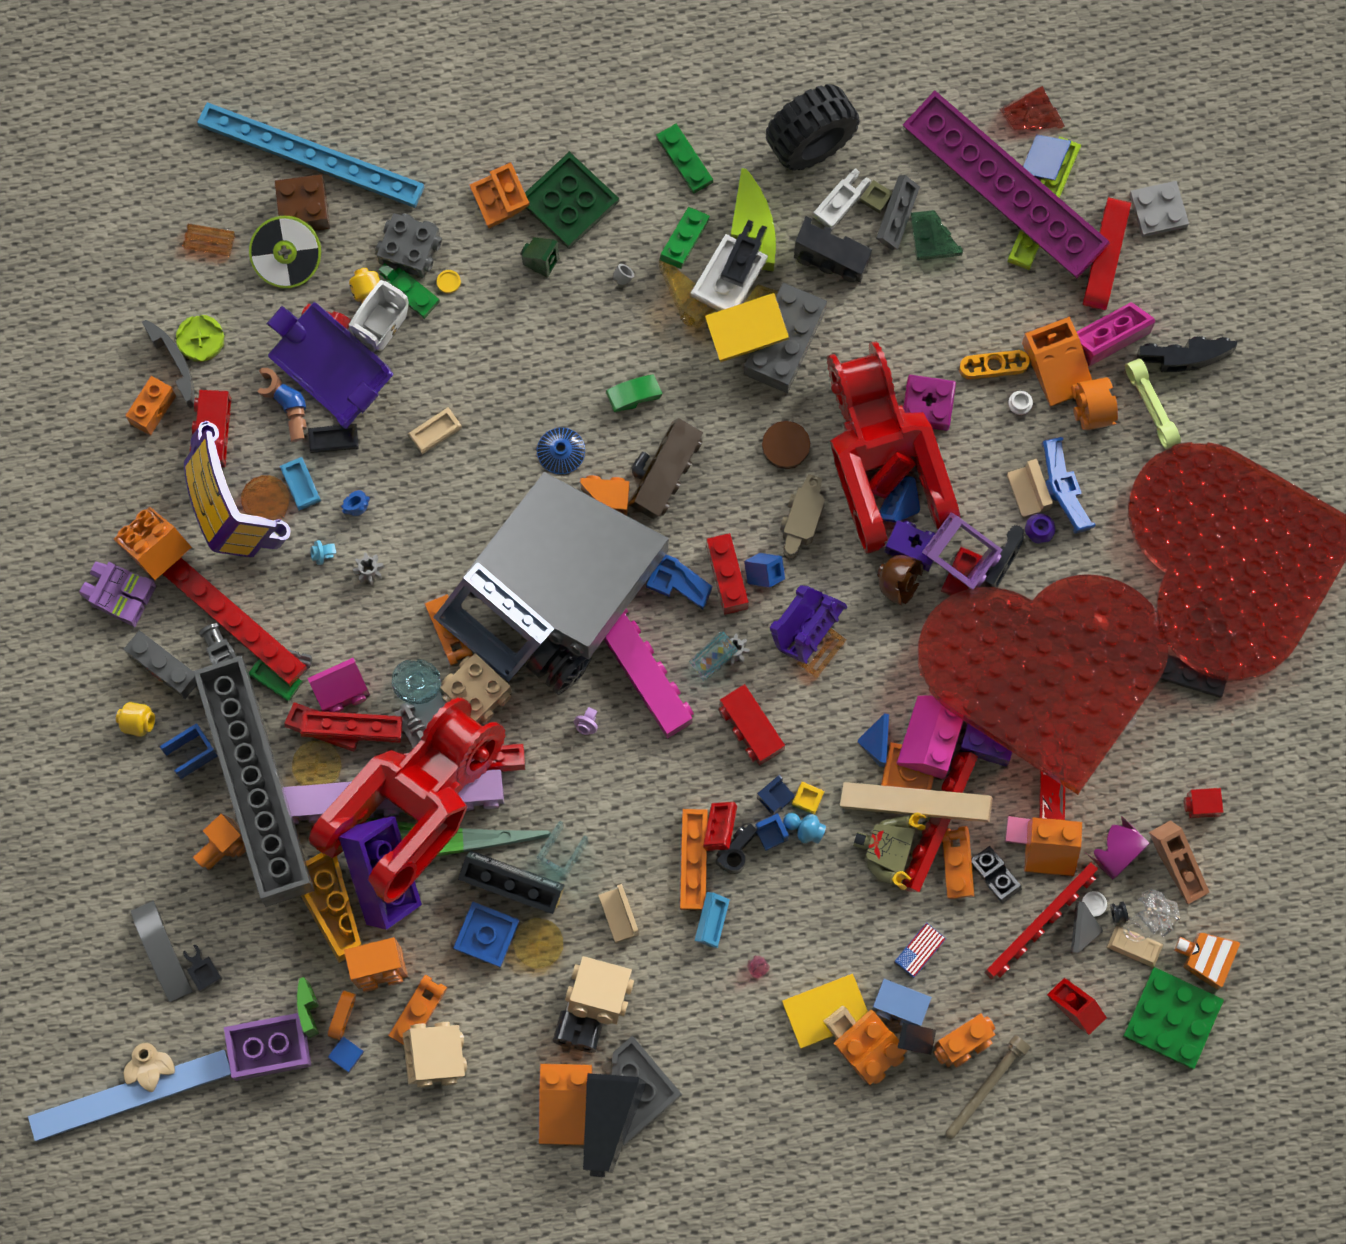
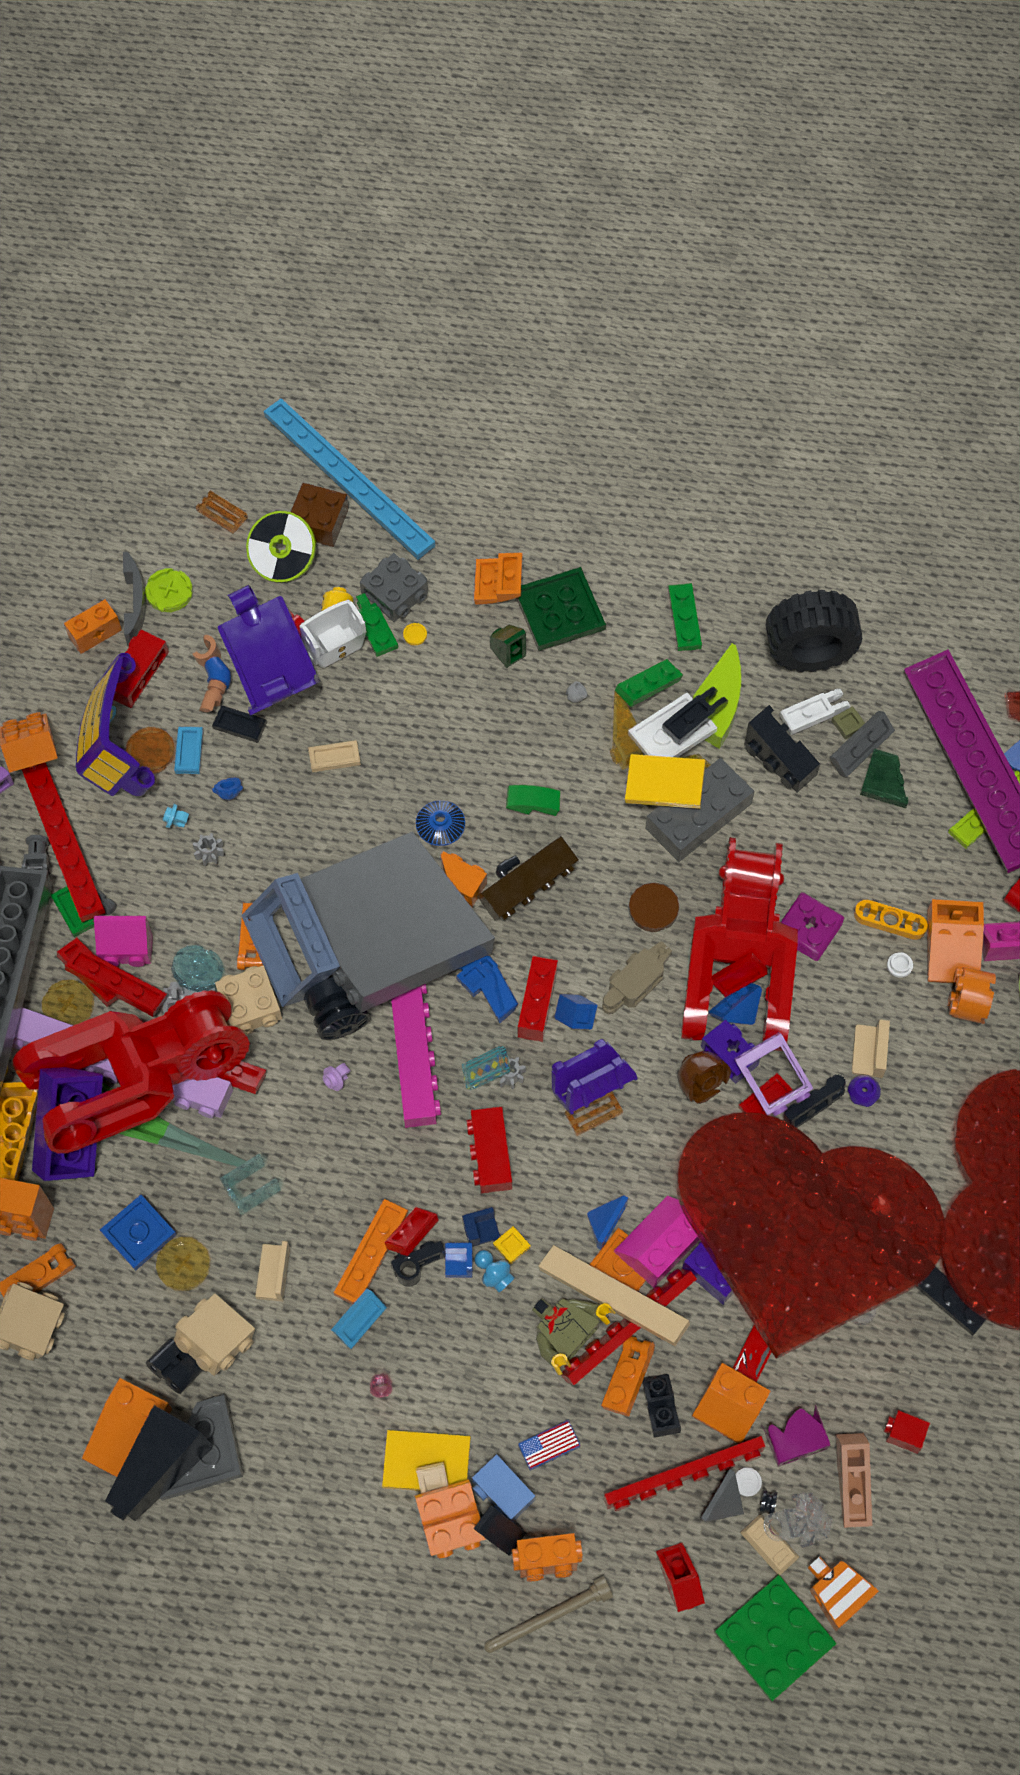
camera: 25 degrees right, 10 degrees down
(511, 882) = (186, 1192): black brick -> none
(1016, 830) = (702, 1371): bright pink tile -> none
(1064, 485) = (906, 1060): plate -> none

